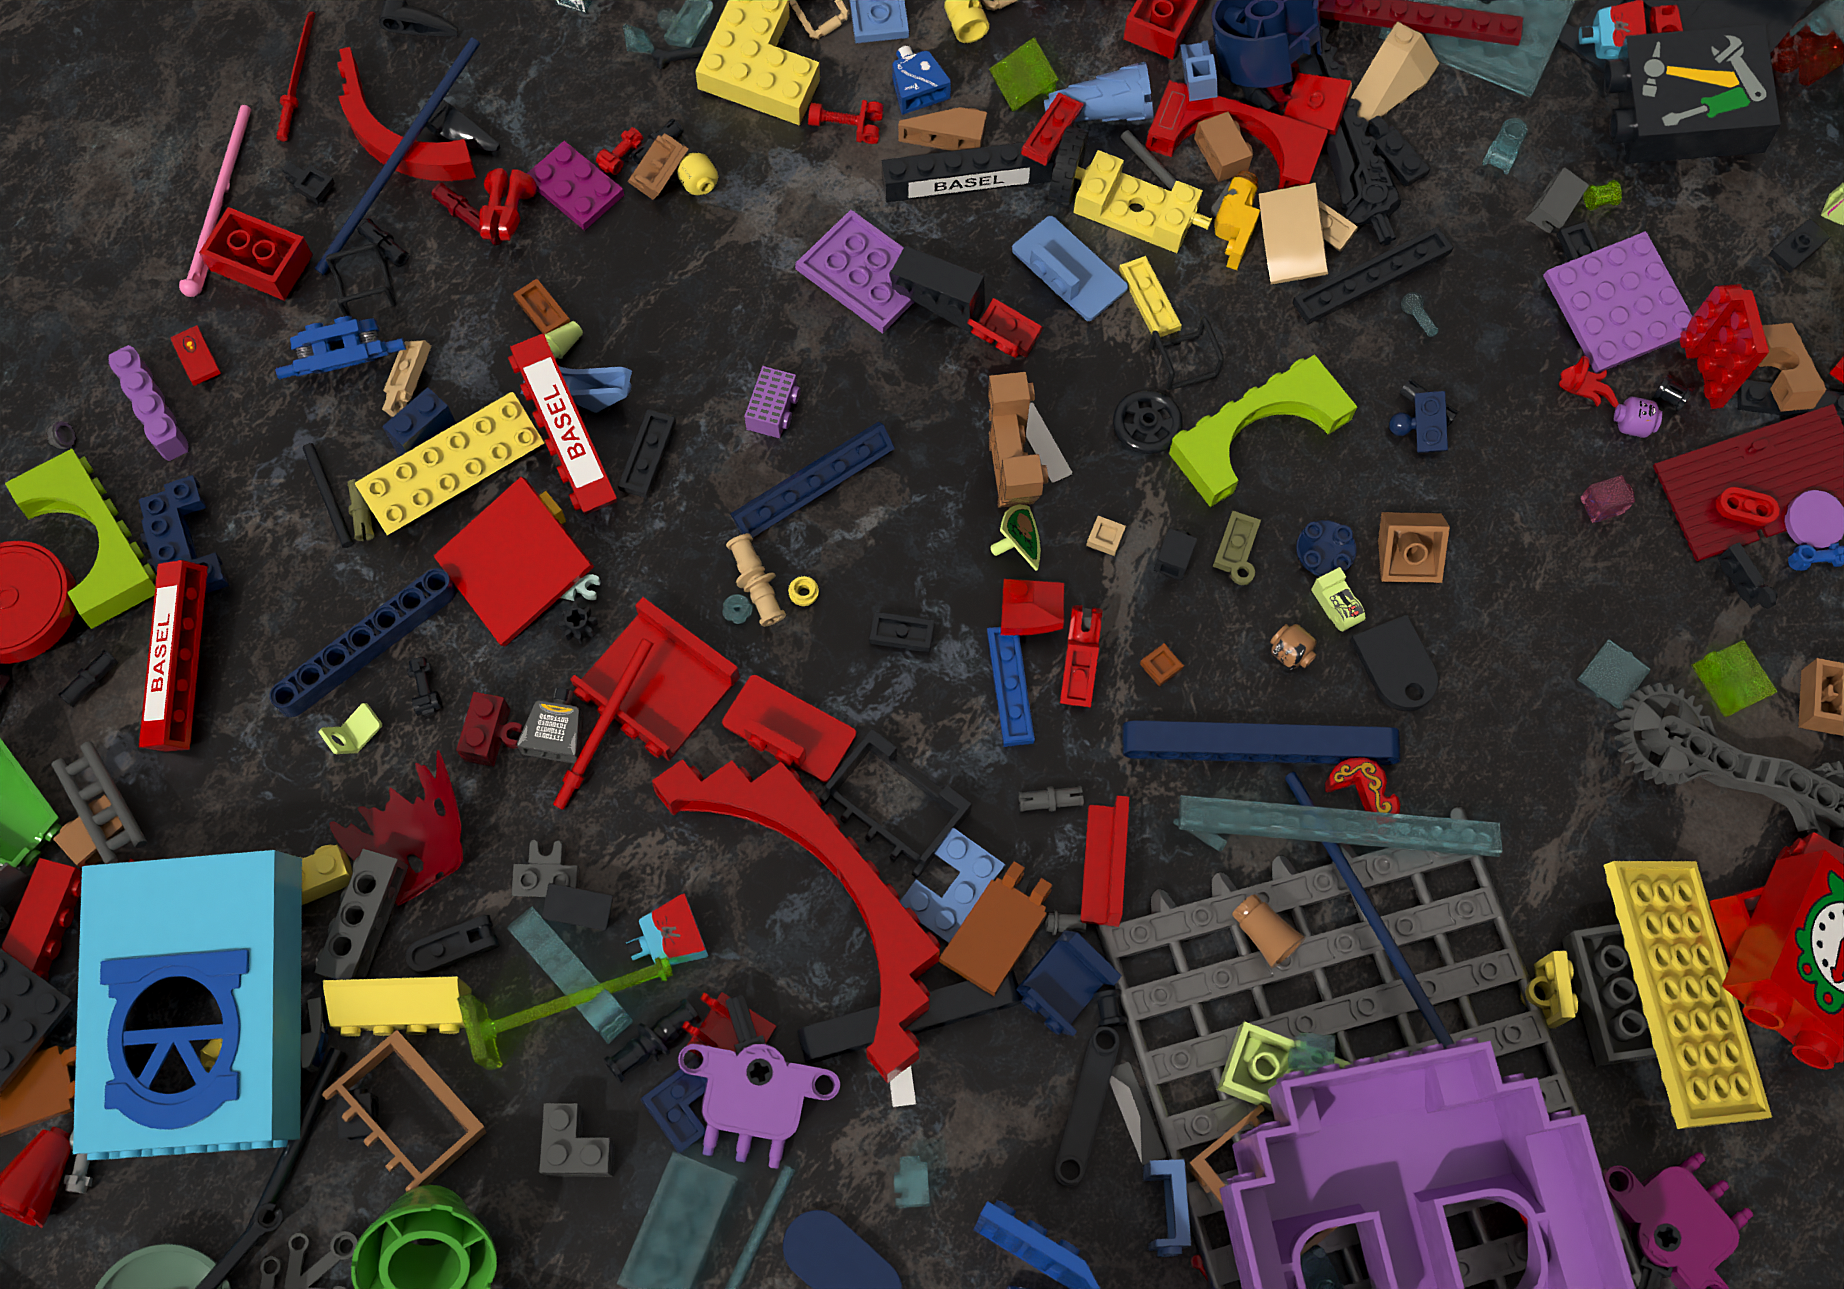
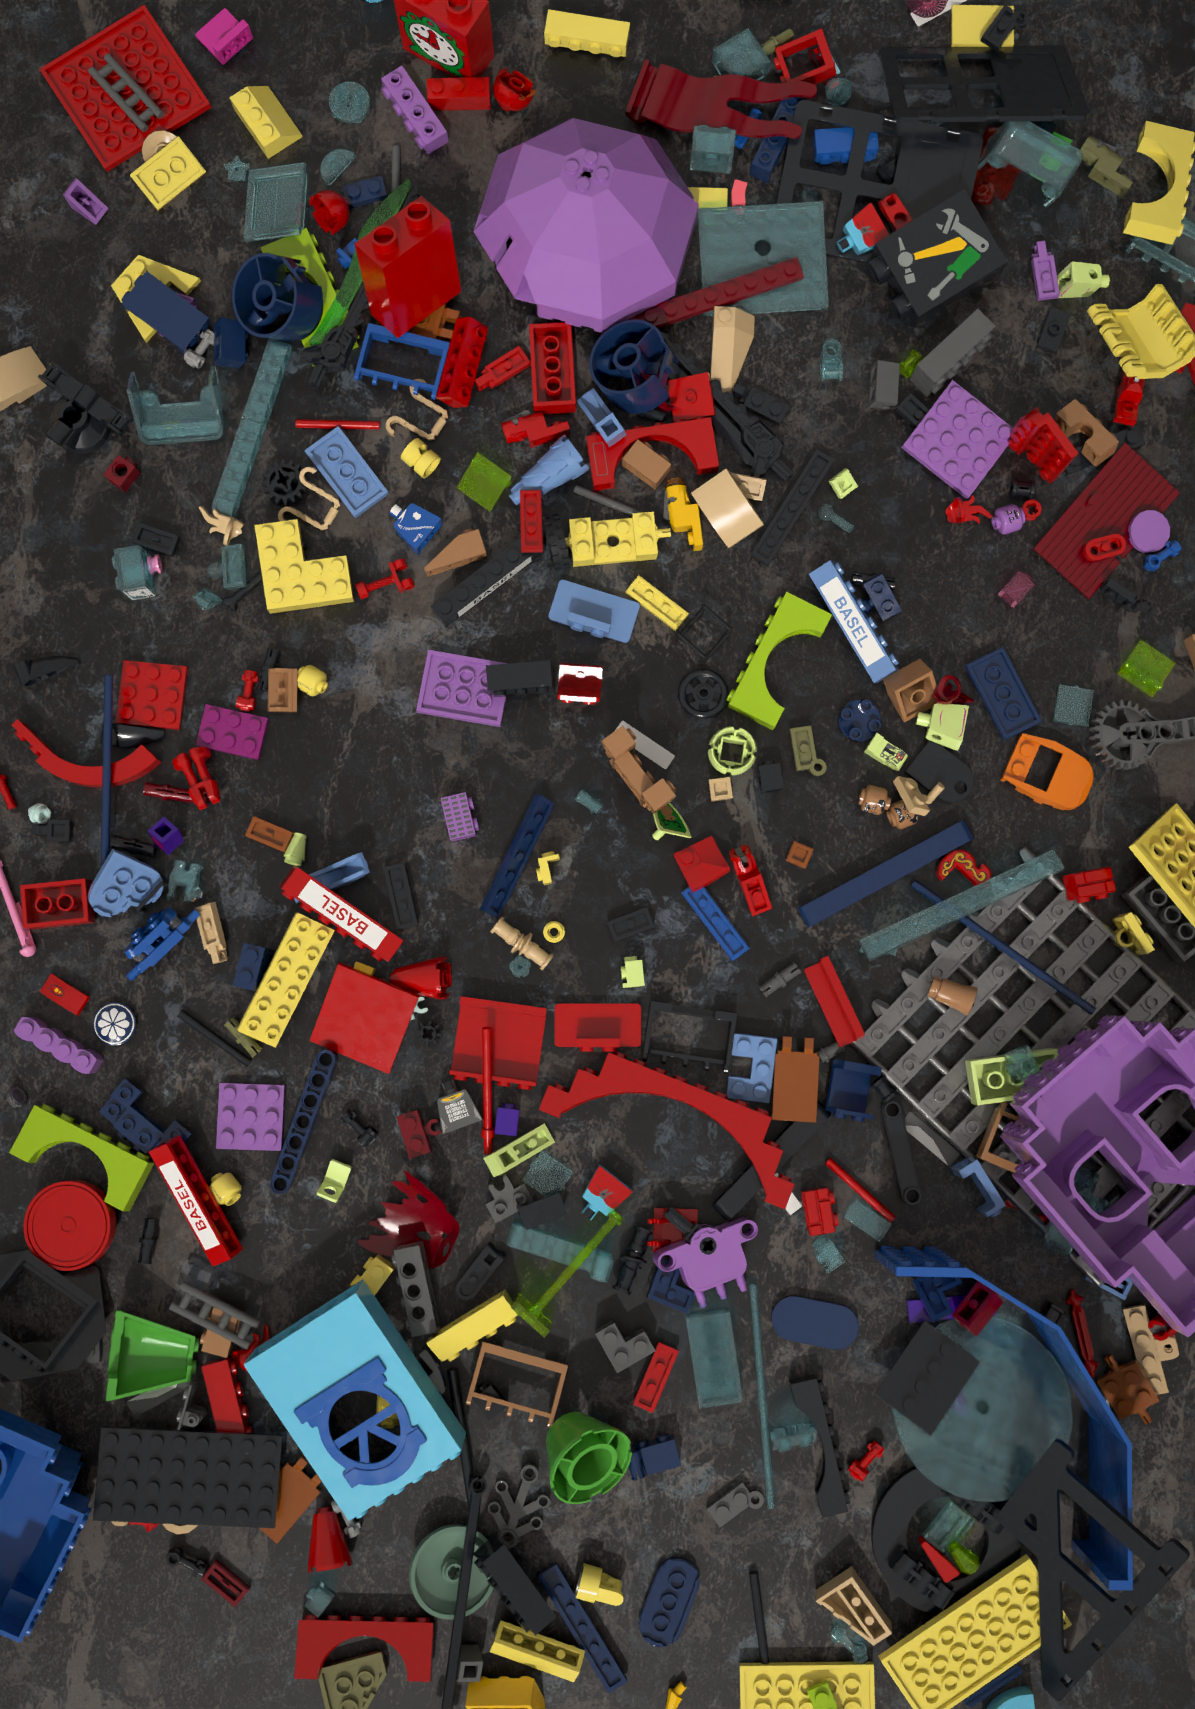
camera: 30 degrees left, 15 degrees up
(218, 668) = (225, 1188): none -> light yellow head
(227, 417) = (114, 1023): none -> dish
(305, 155) = (39, 813): none -> light aqua plate
(306, 604) = (250, 1116): none -> medium lavender plate
(339, 266) = (122, 884): none -> medium blue plate
(418, 305) = (188, 879): none -> clear light blue animal
(424, 245) = (165, 835): none -> dark purple brick
(513, 104) = (152, 695): none -> red plate
(588, 1215) = (655, 1377): none -> red plate
(596, 821) = (519, 1150): none -> yellowish green slope
(606, 777) = (507, 1120): none -> dark purple brick
(614, 874) = (547, 1175): none -> clear light blue piece
(618, 556) = (425, 978): none -> red cone
(841, 503) = (543, 872): none -> light yellow bracket
(869, 689) = (632, 972): none -> yellowish green brick
(933, 1119) = (819, 1211): none -> red brick
(940, 472) = (589, 802): none -> clear light blue pin
(991, 1170) = (867, 1220): none -> clear light blue plate
(1004, 1125) = (857, 1187): none -> red bar
(1111, 47) = (533, 428): none -> red plate
(1156, 482) = (732, 736): none -> yellowish green piece
(1322, 683) = (899, 815): none -> medium nougat head
(1345, 667) = (912, 797): none -> tan plate
(1380, 431) = (853, 621): none -> brick
(1433, 604) = (945, 724): none -> yellowish green torso
(1450, 280) = (843, 483): none -> yellowish green tile
(1456, 574) = (944, 694): none -> dark red piece
(1525, 896) = (1089, 883): none -> red brick
(1528, 611) = (1003, 693): none -> dark blue plate
(1561, 760) = (1069, 782): none -> orange slope
(1660, 202) = (952, 353): none -> dark grey brick
(1676, 415) = (1037, 509): none -> red bush
(1819, 180) = (1044, 273): none -> medium lavender hinge

